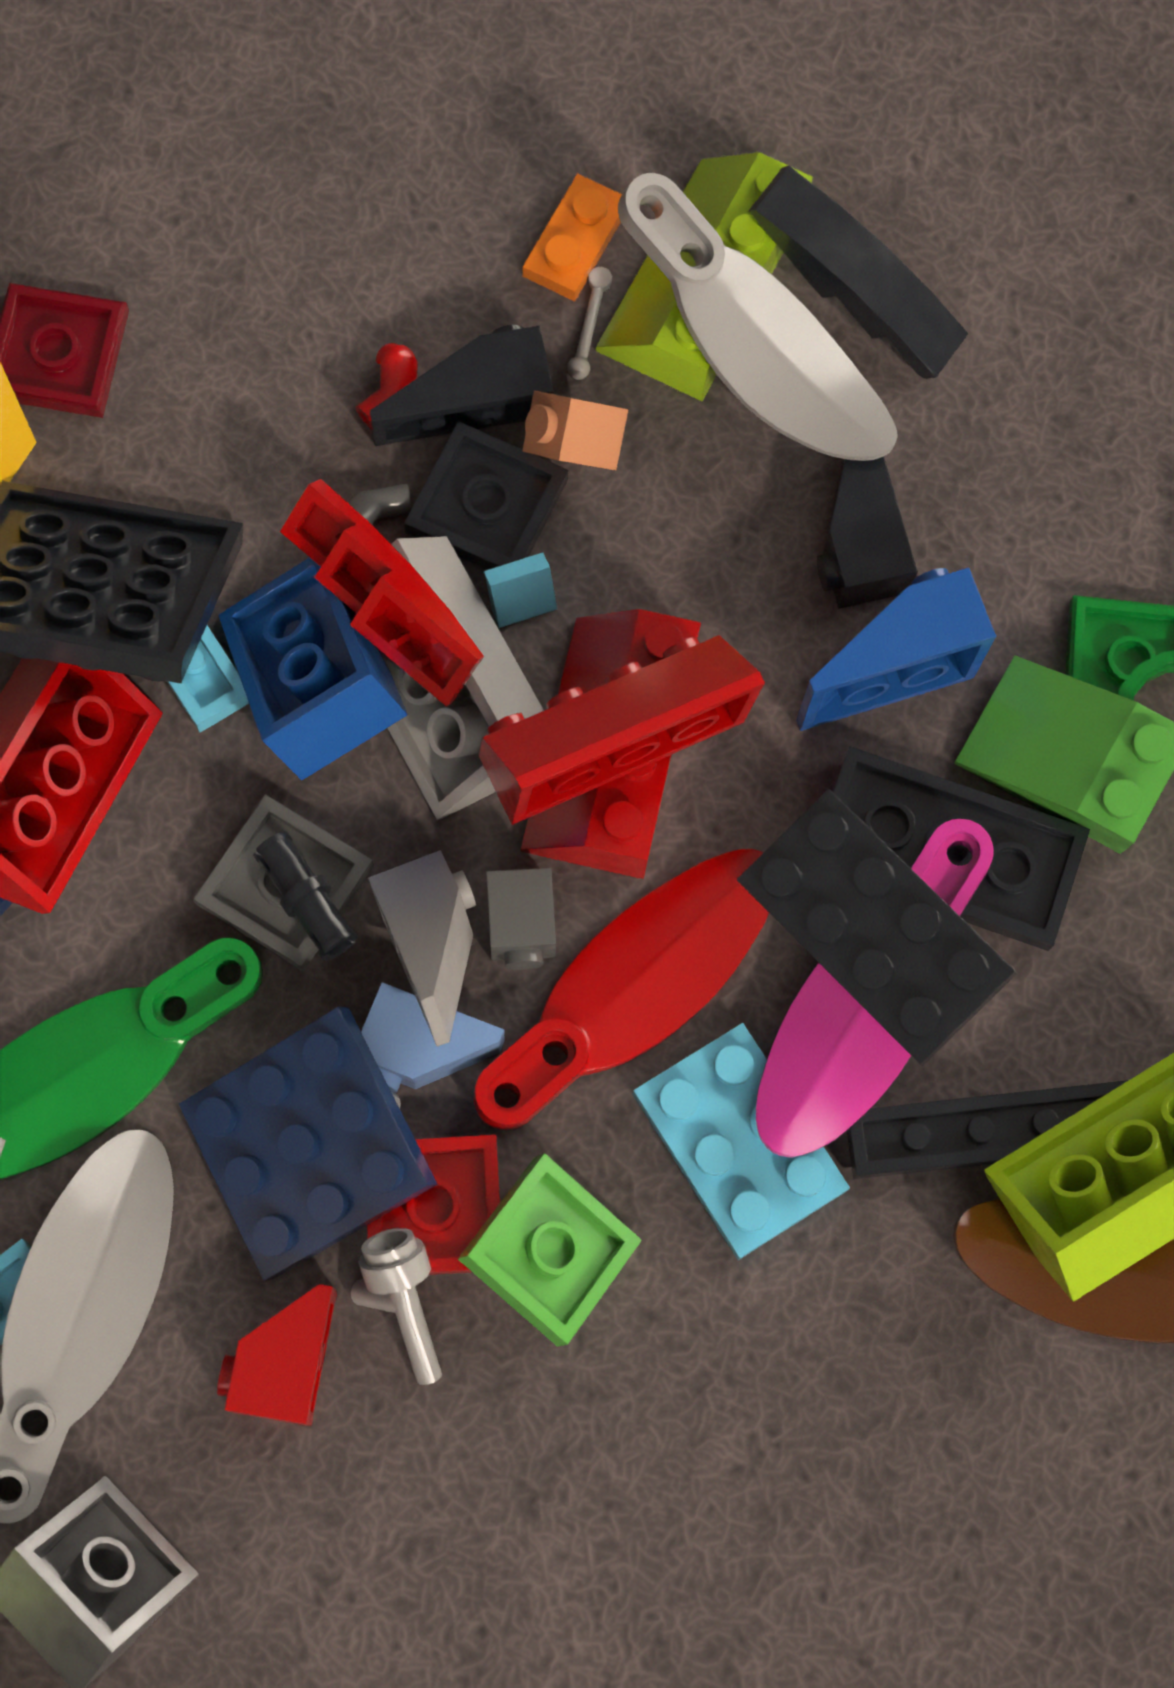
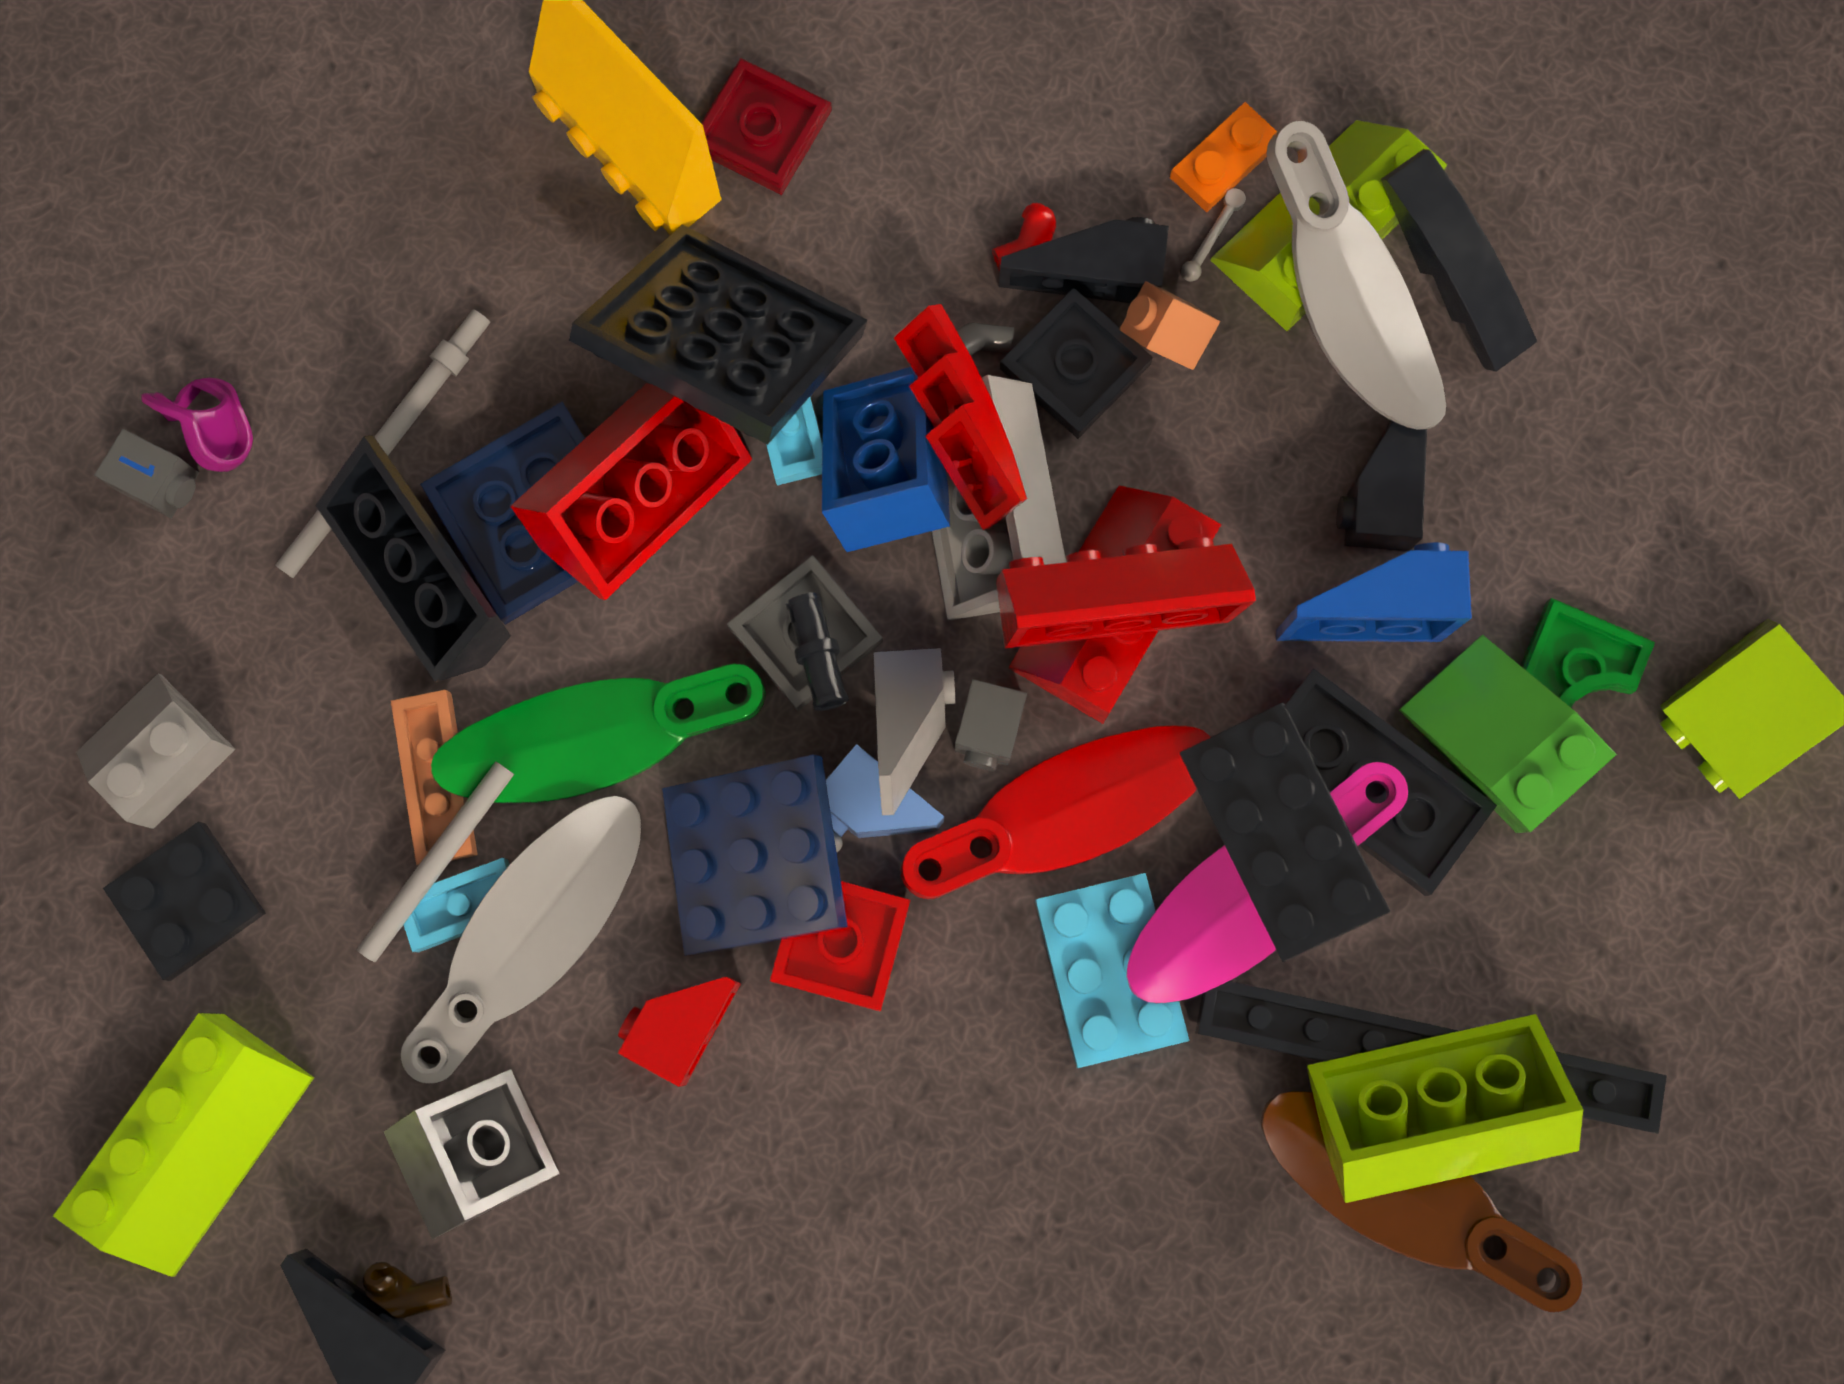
camera: 25 degrees right, 5 degrees up
(390, 1270) = (786, 986): light grey piece -> none
(521, 590) = (1079, 447): medium azure tile -> none
(550, 1250) = (923, 1010): bright green plate -> none

